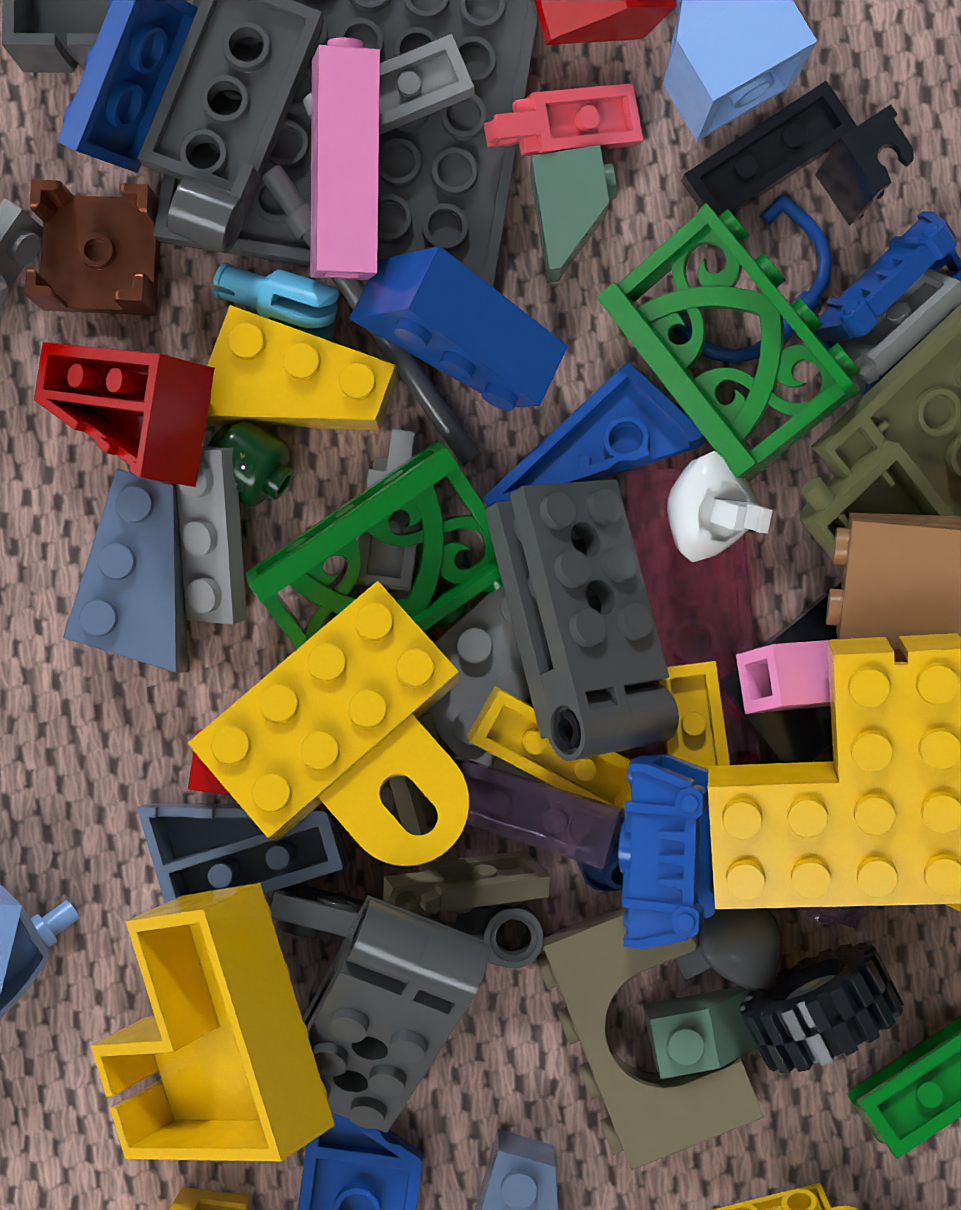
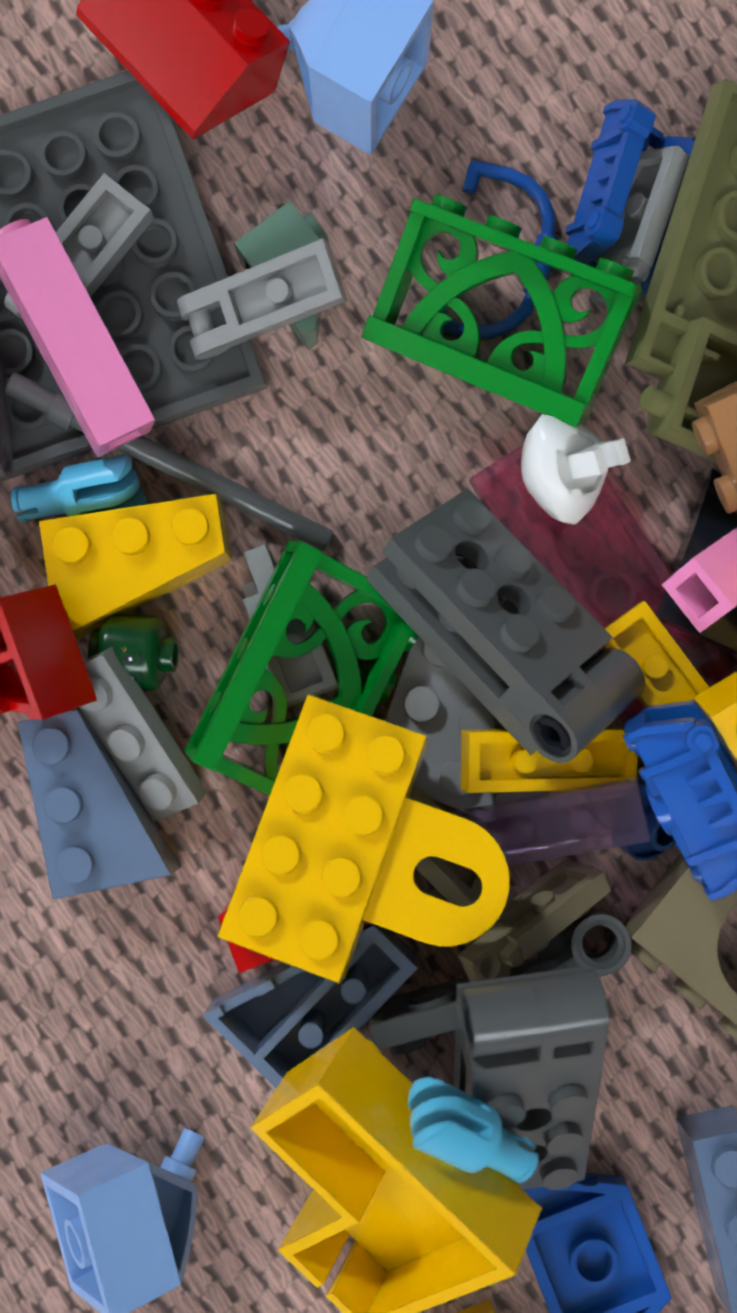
camera: 25 degrees left, 0 degrees up
(306, 1021) = (466, 1132): none -> medium azure arm
(460, 327) = (254, 428): blue wedge -> none
(529, 218) = (263, 298): none -> light grey plate
(569, 120) = (249, 195): coral hinge -> none
(609, 434) = (438, 451): blue wing -> none
(770, 152) = (442, 127): black plate -> none
(852, 168) = (527, 98): black hinge -> none

